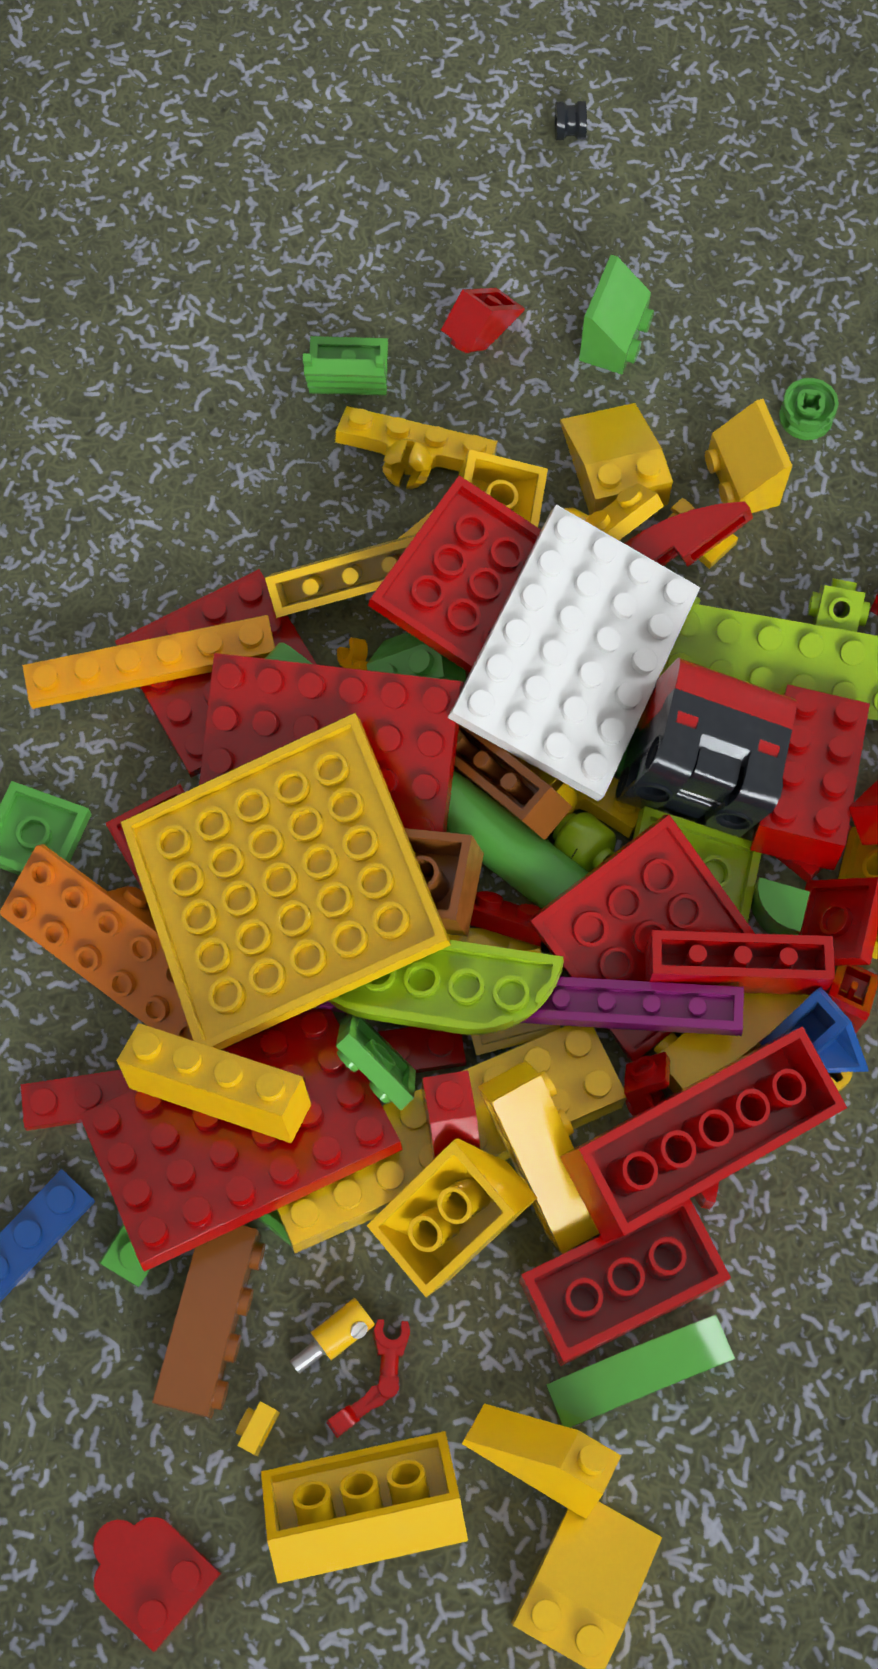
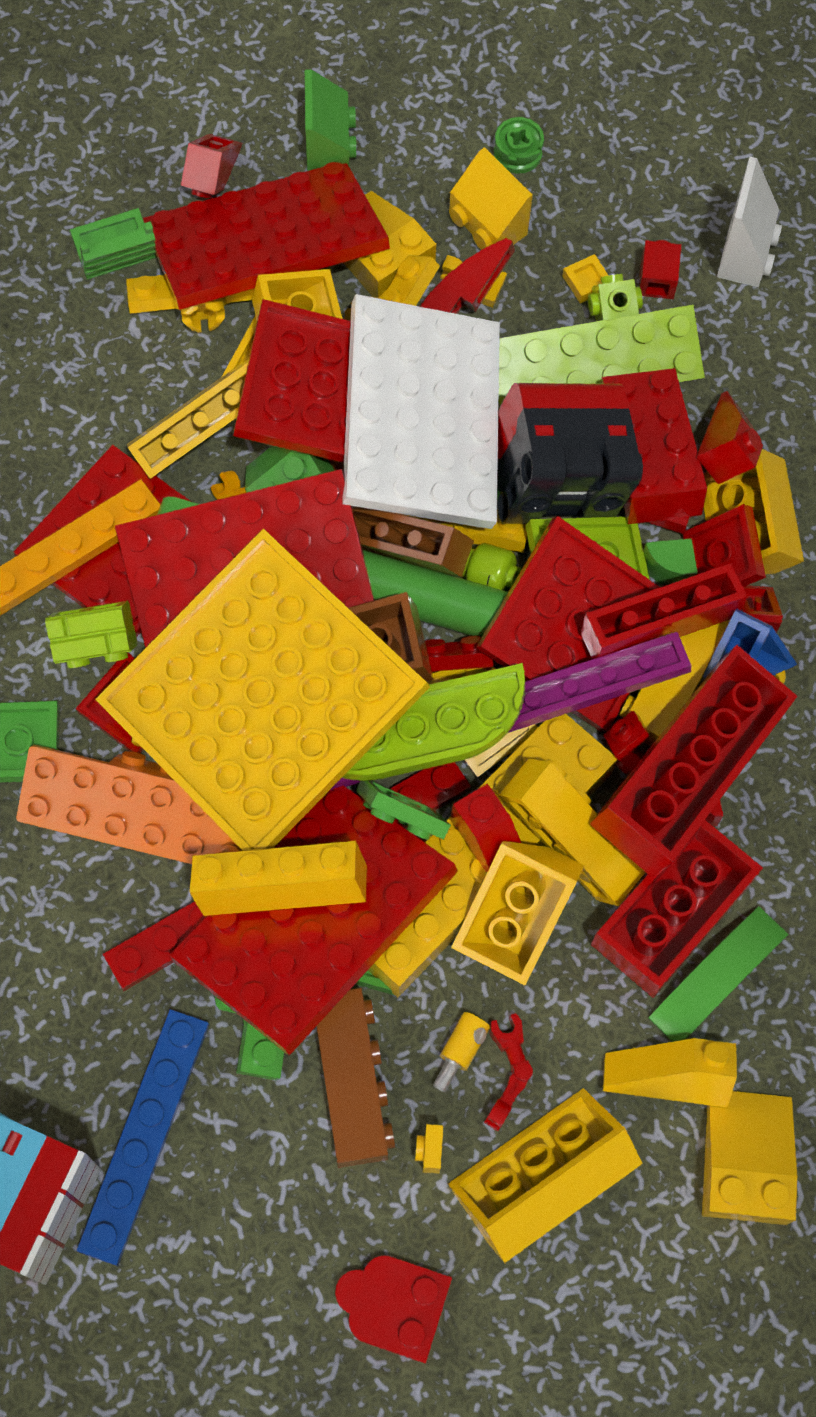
camera: 25 degrees left, 0 degrees up
(150, 753) = (91, 633): none -> lime brick
(503, 407) = (266, 229): none -> red plate
(818, 570) = (583, 276): none -> yellow plate

